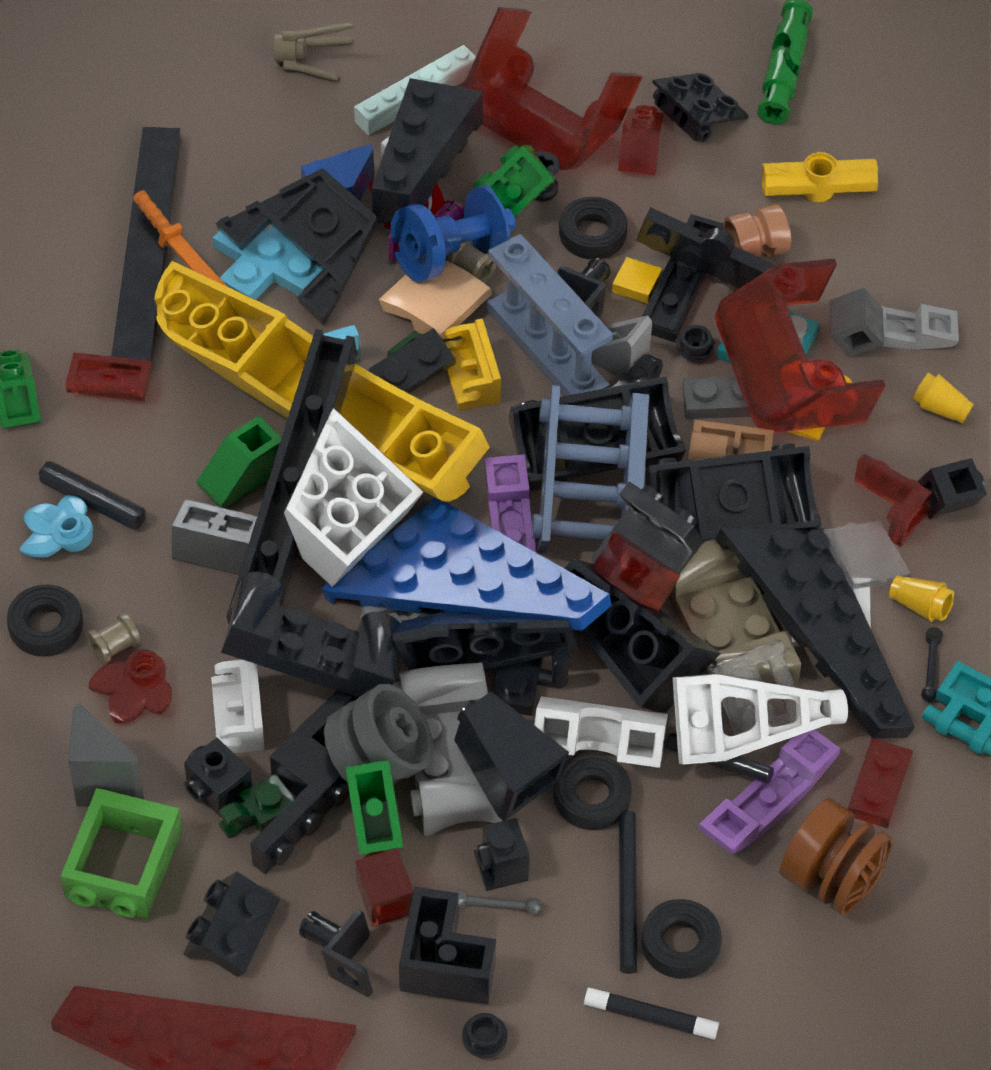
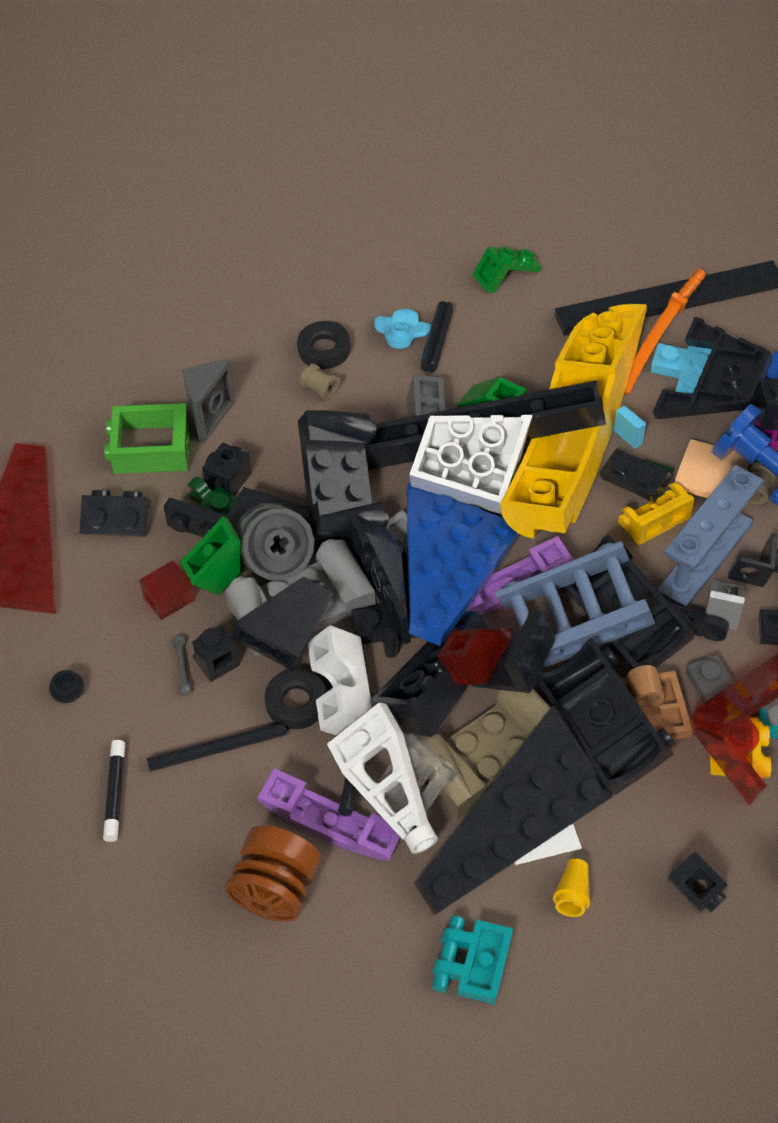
camera: 75 degrees right, 0 degrees up
(108, 376) = (539, 312): clear red plate -> none
(133, 691) = (288, 407): clear red plate -> none
(238, 706) = (280, 473): white hinge -> none
(340, 946) = (115, 579): black bracket -> none
(439, 959) = (114, 629): black brick -> none
(681, 964) = (183, 812): black tyre -> none
(695, 343) = (758, 647): black plate -> none
(866, 554) = (600, 834): clear piece -> none
(880, 782) = (375, 901): clear red plate -> none
(907, 495) = (658, 857): clear red bracket -> none
(933, 638) = (542, 911): black hinge -> none

